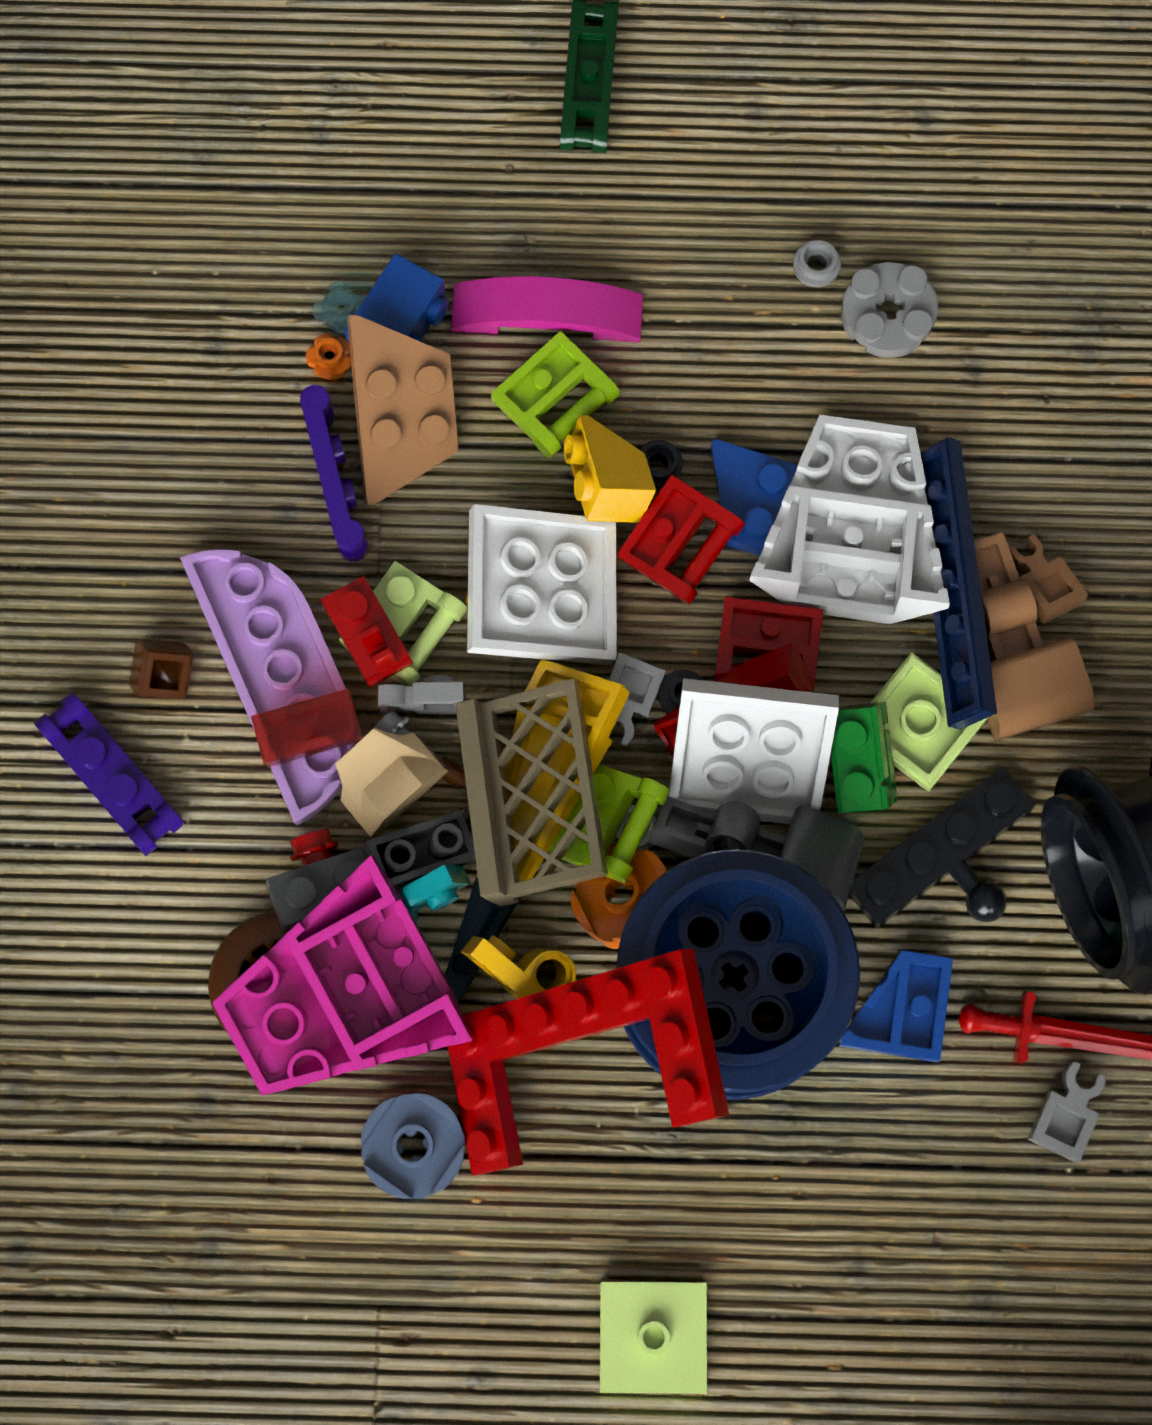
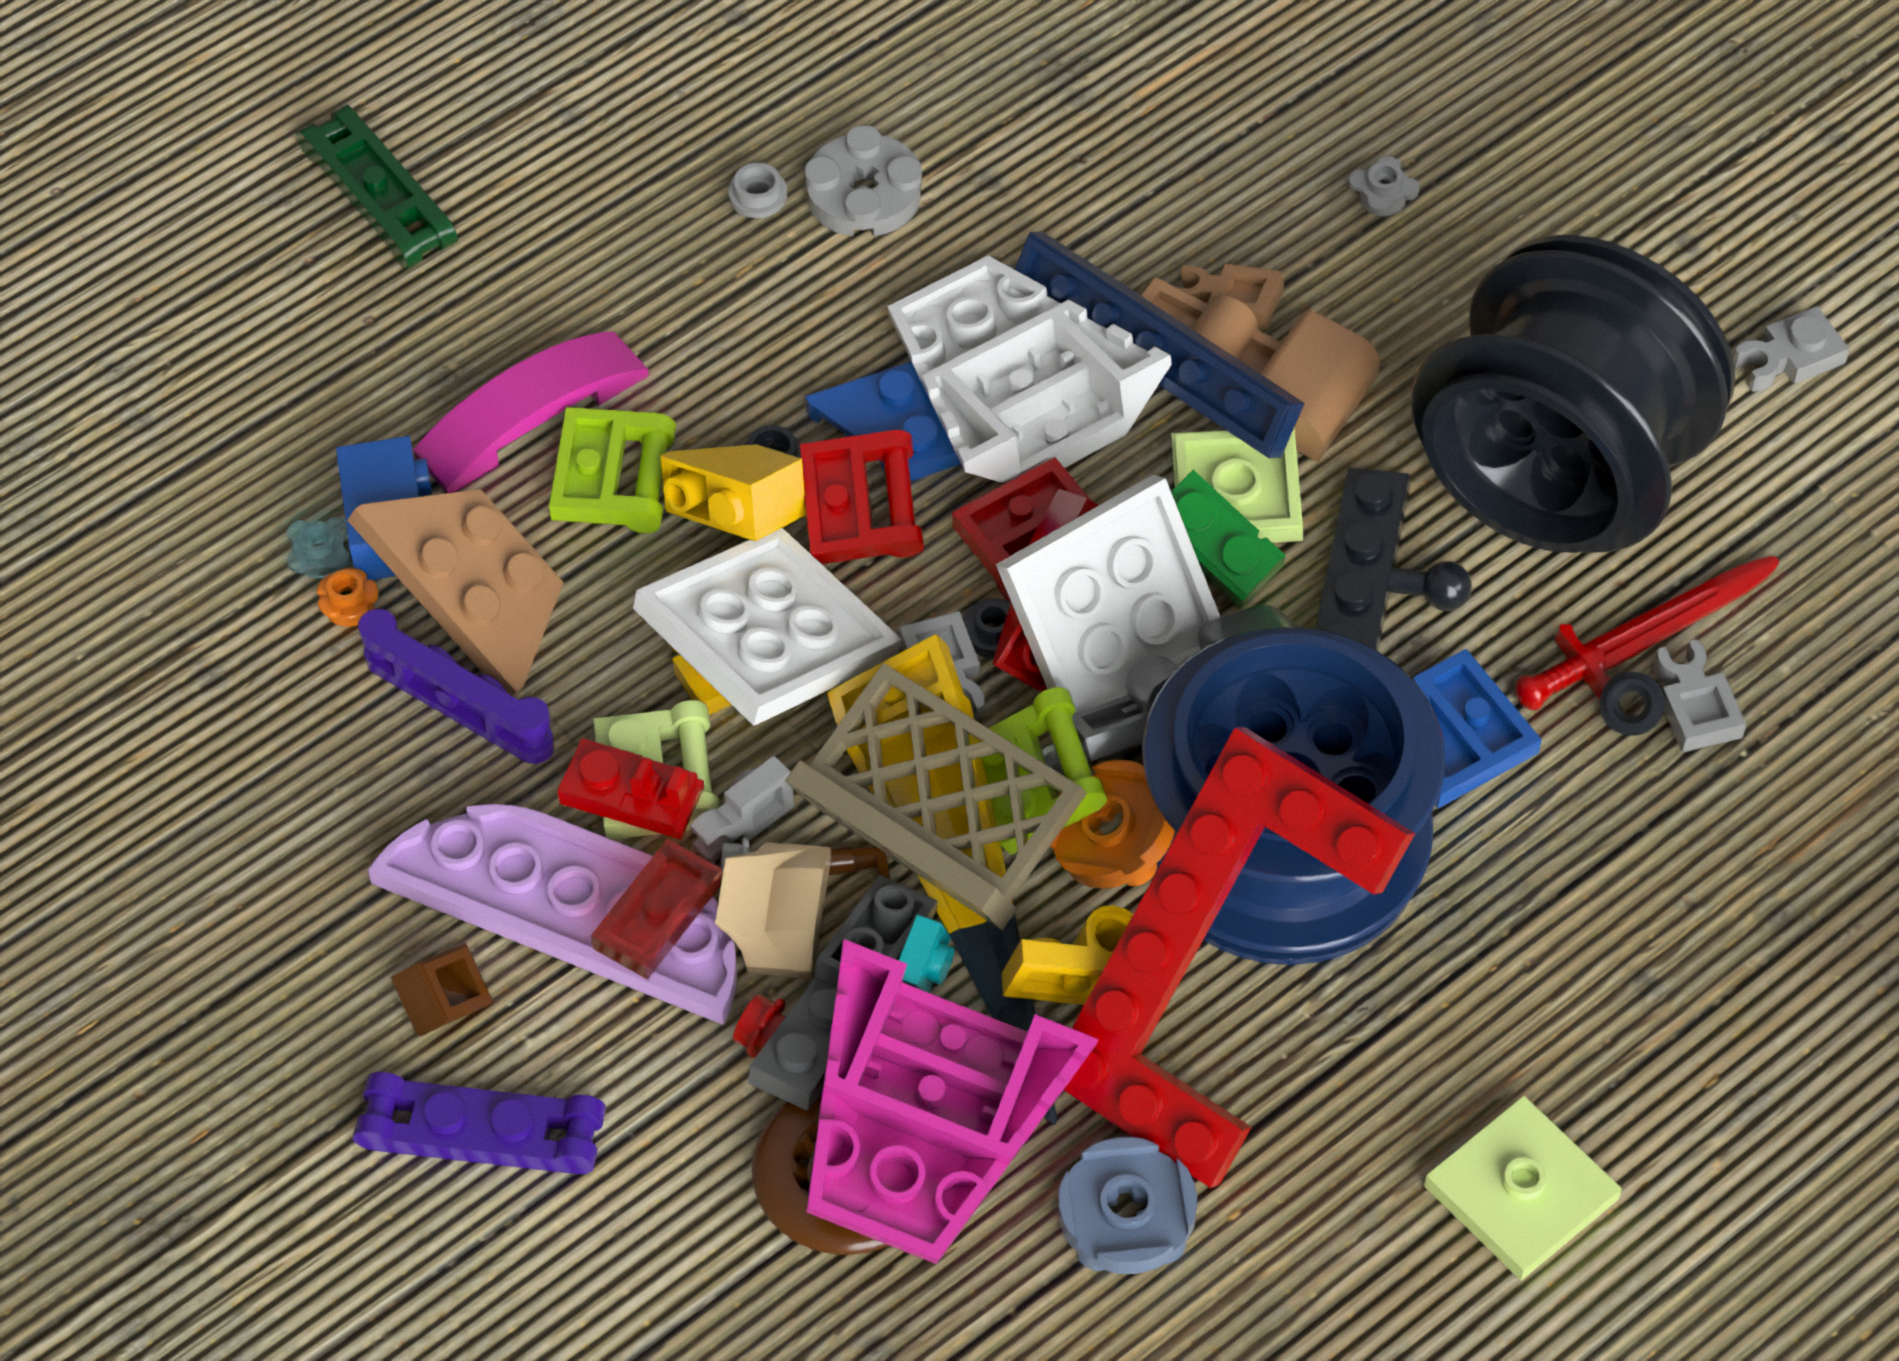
camera: 40 degrees left, 20 degrees down
(1013, 1090) = (1617, 718): none -> black plate

